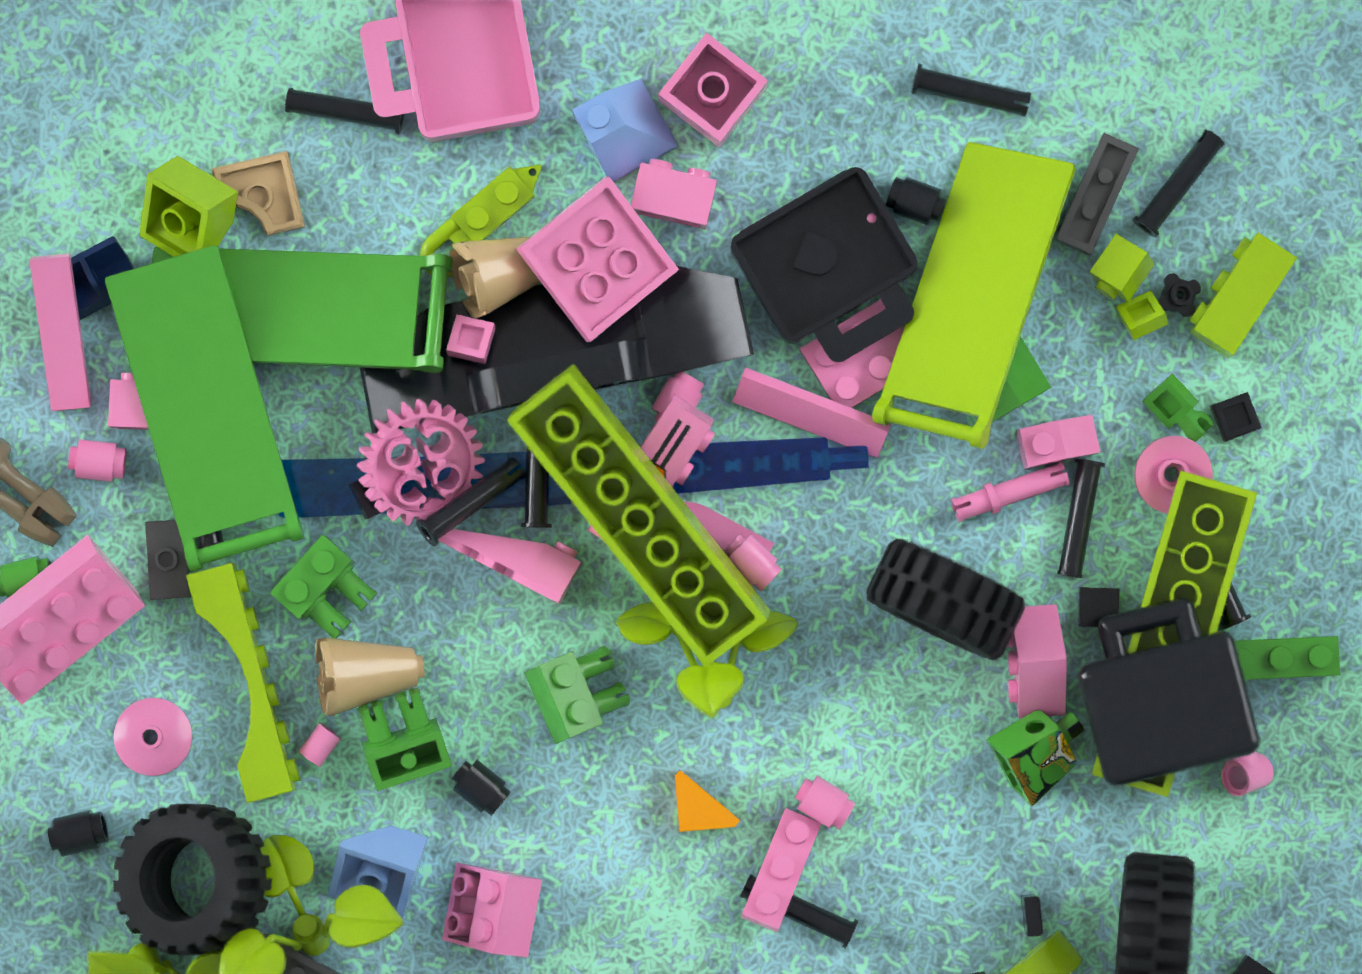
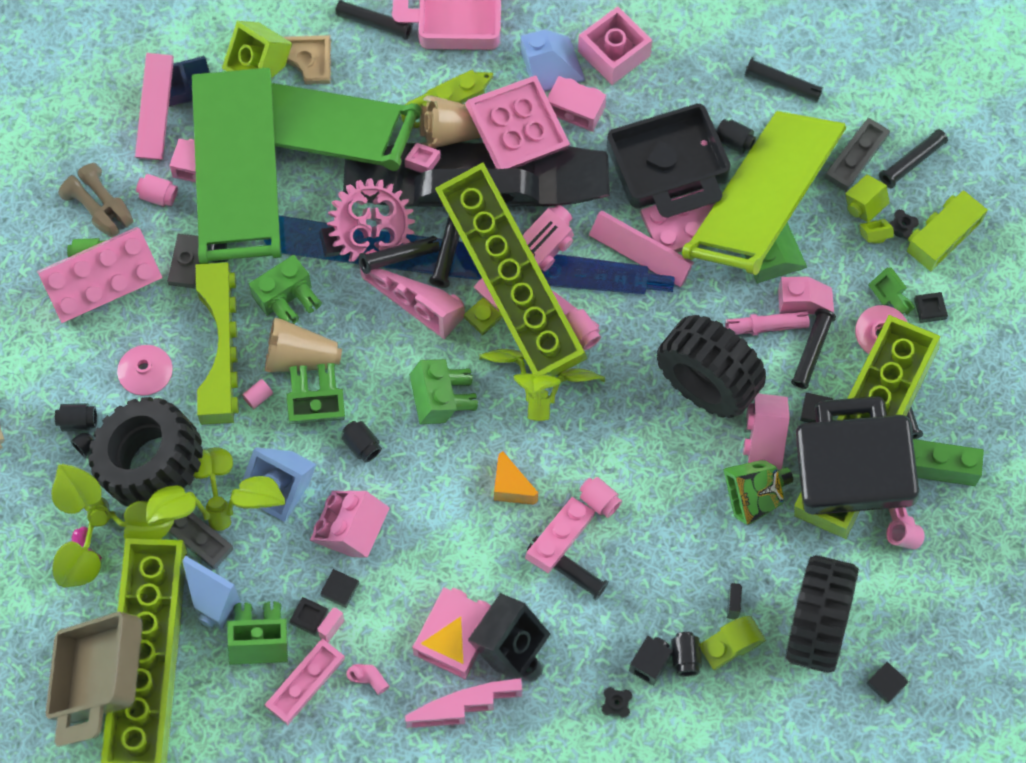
camera: 10 degrees right, 20 degrees down
(99, 867) = (82, 443): none -> black hinge
(603, 563) = (482, 316): none -> lime plate

